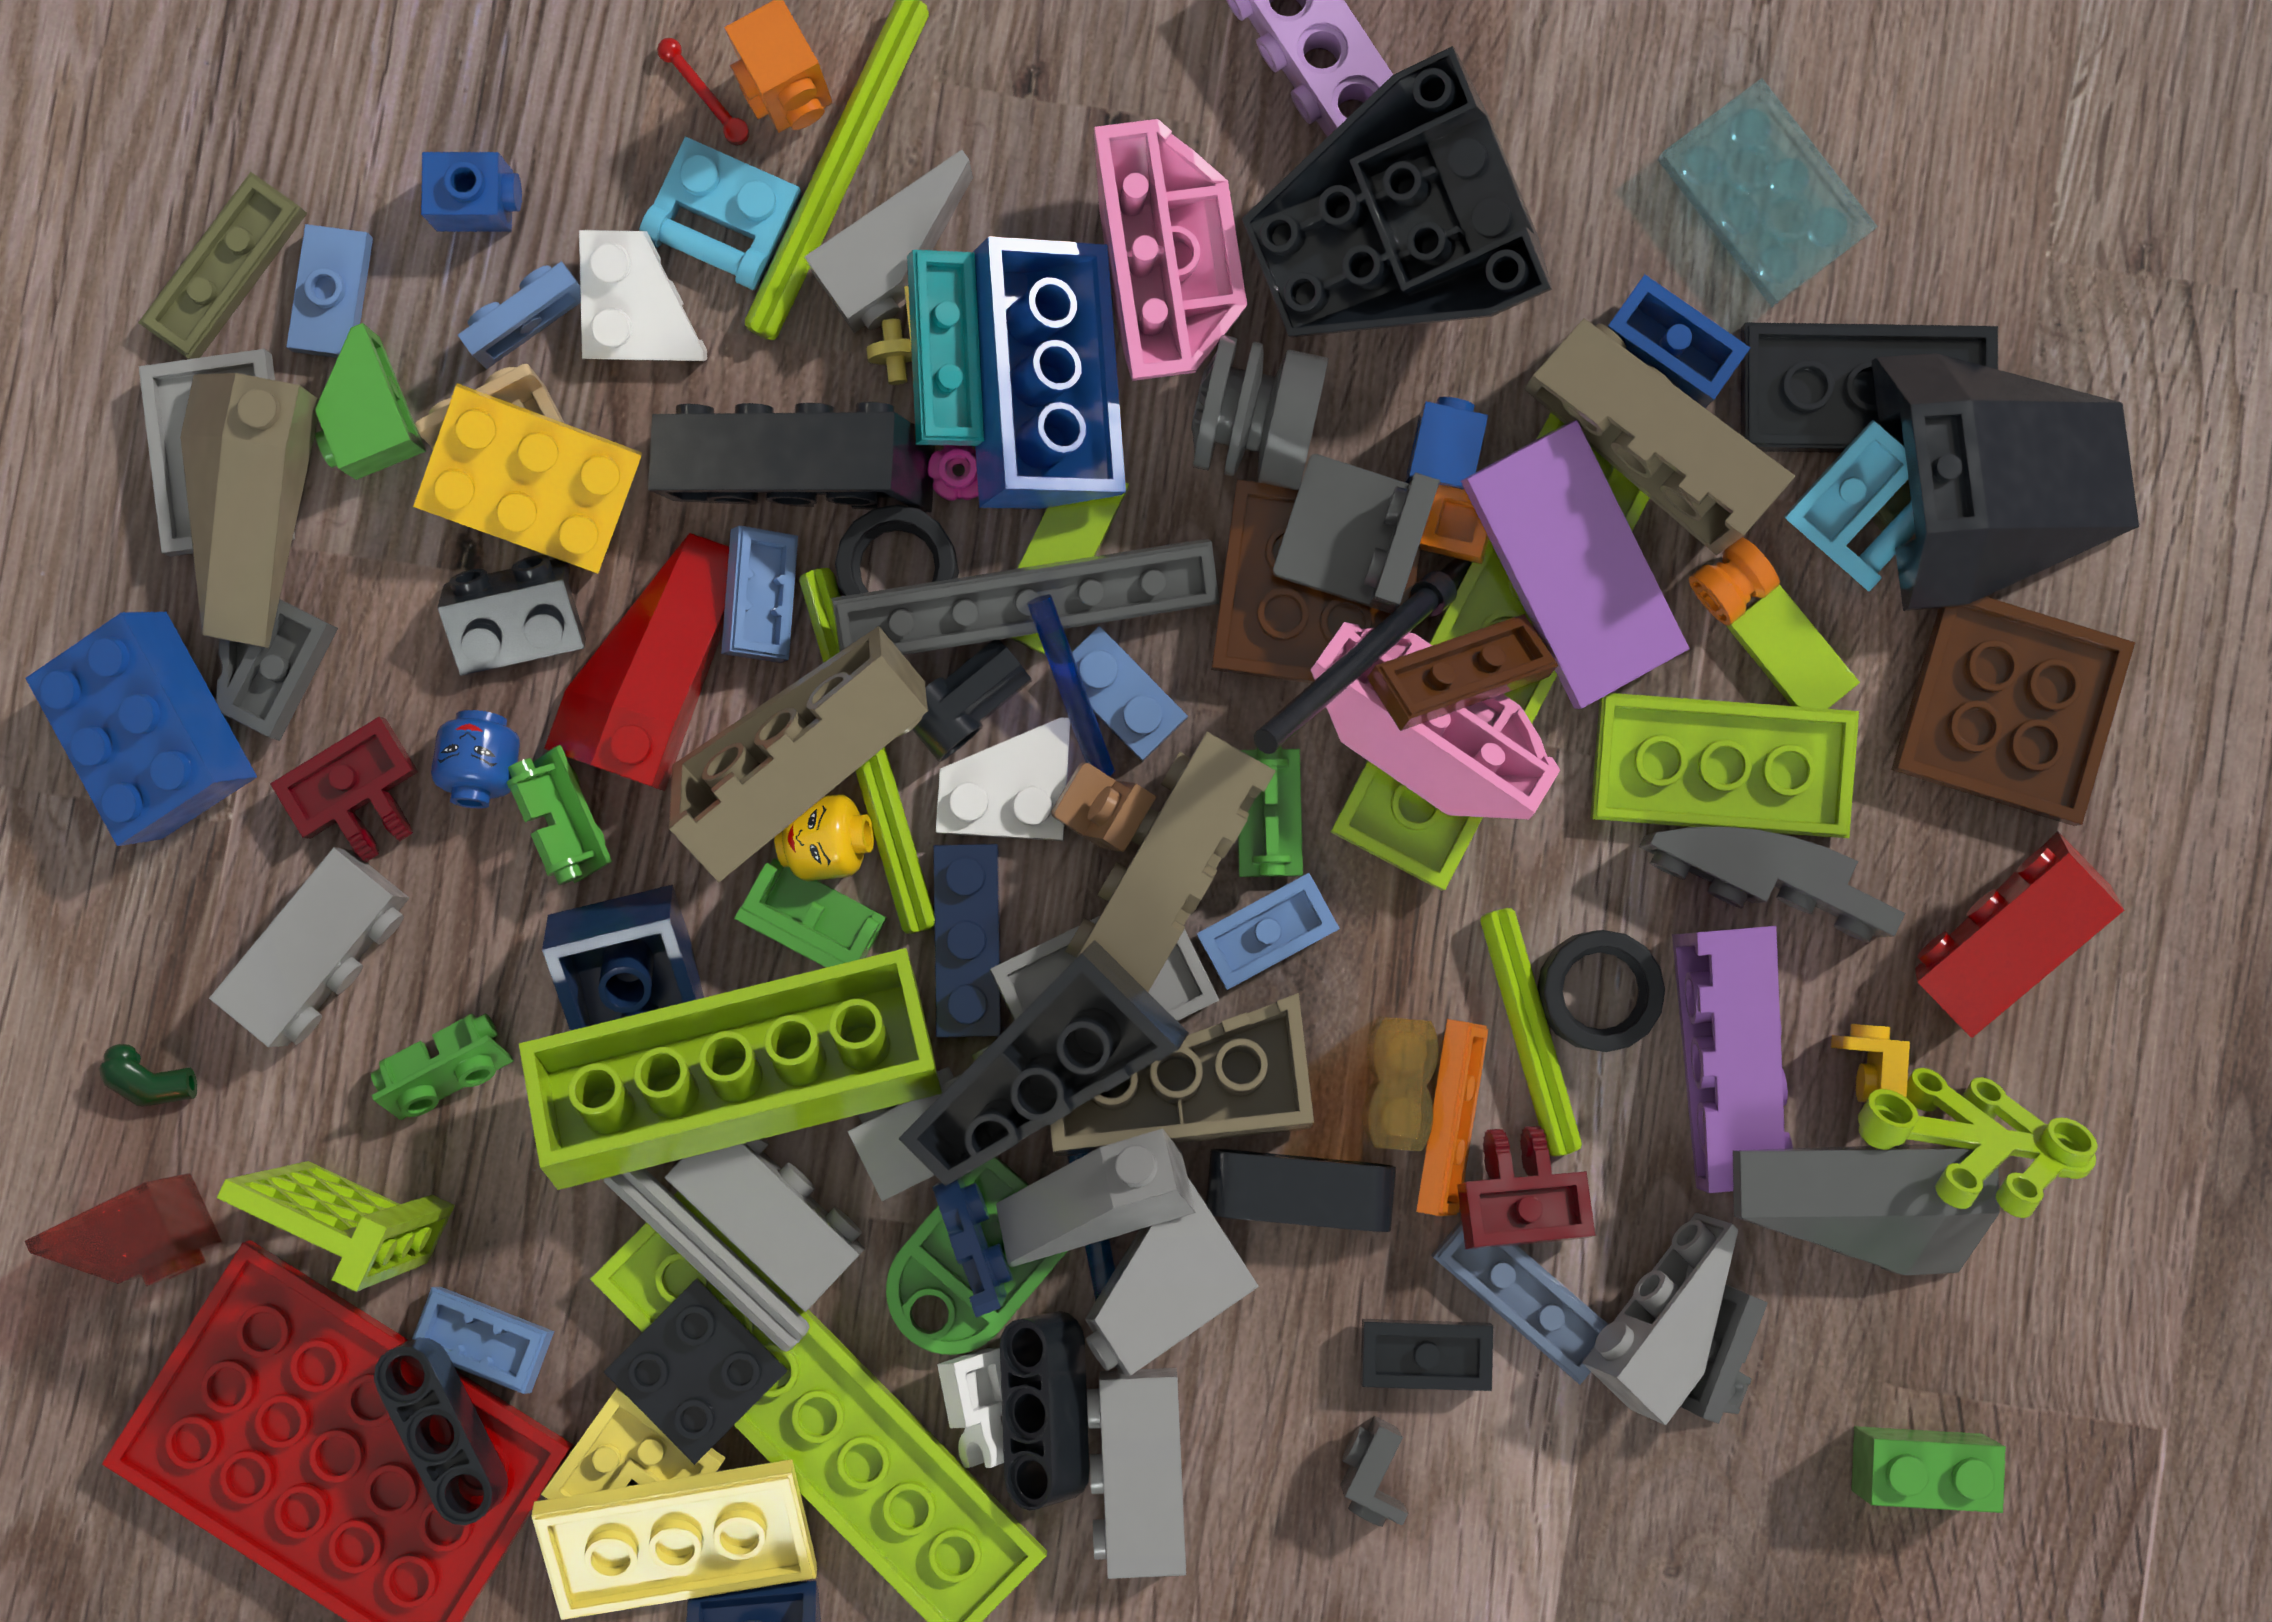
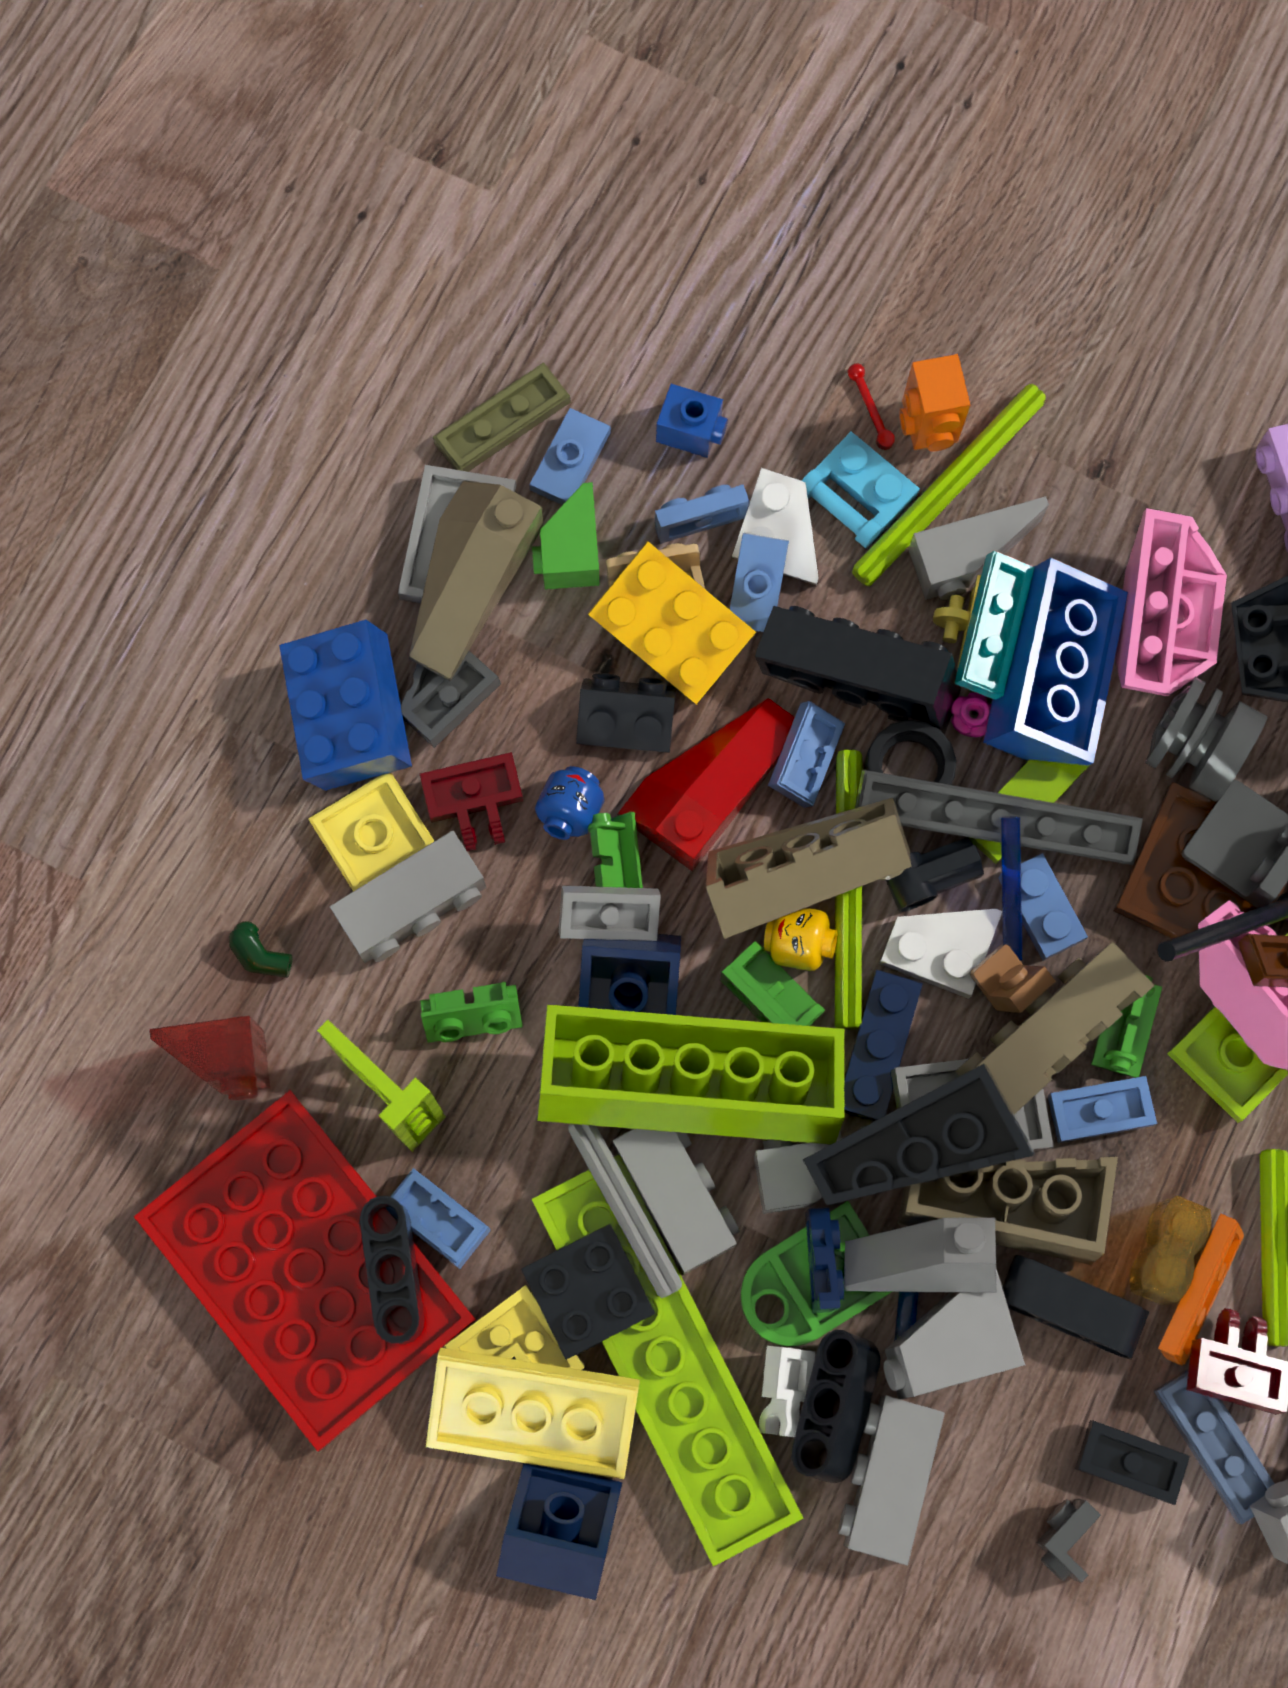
camera: 15 degrees right, 10 degrees down
(236, 874) = (371, 830): none -> light yellow tile
(565, 892) = (609, 913): none -> light grey plate
(623, 380) = (758, 579): none -> medium blue plate

